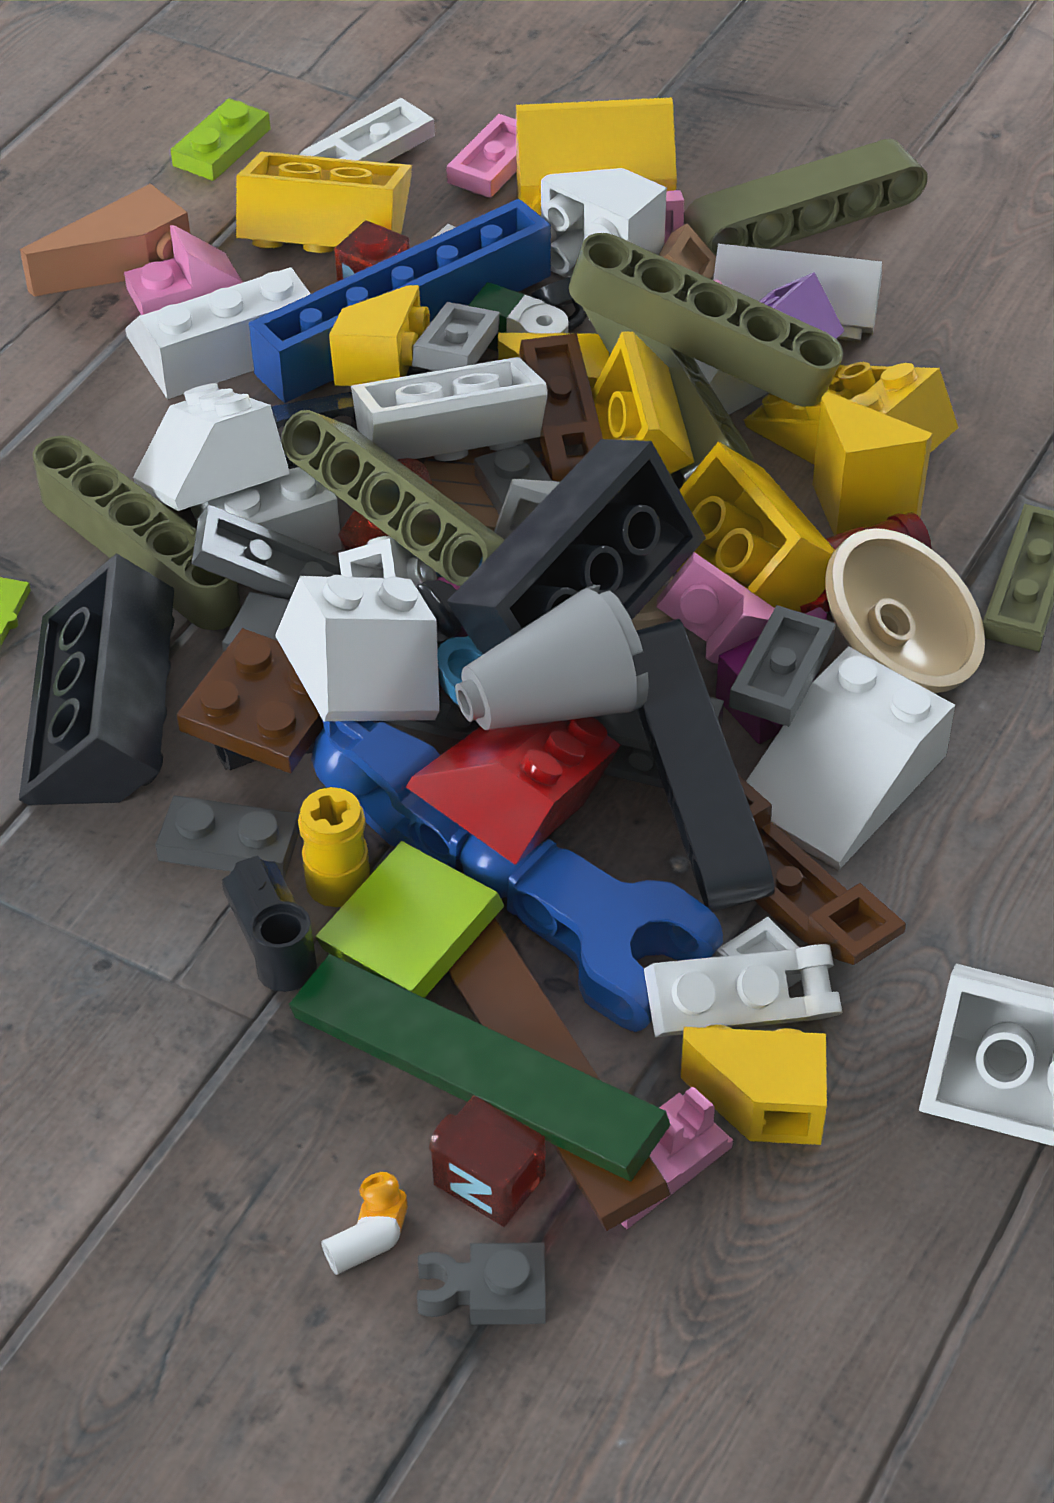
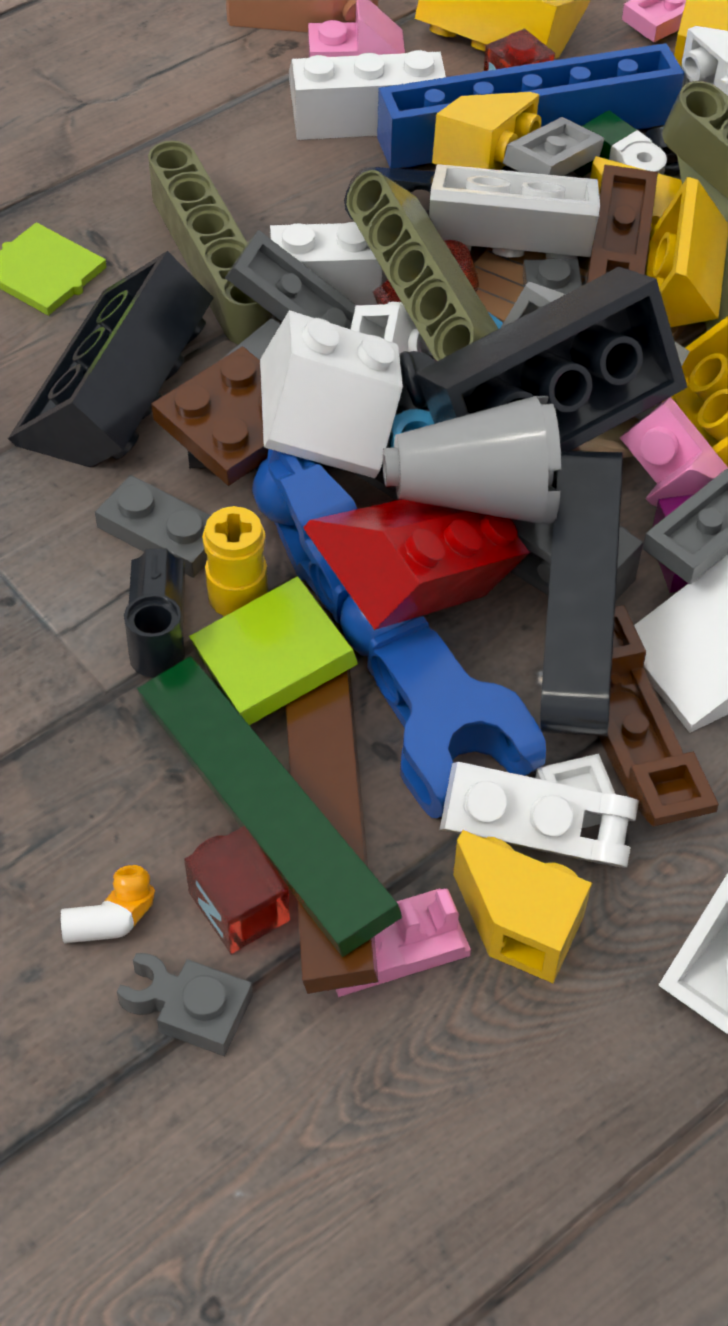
camera: 20 degrees right, 5 degrees up
(211, 448) = (296, 186): white slope -> none

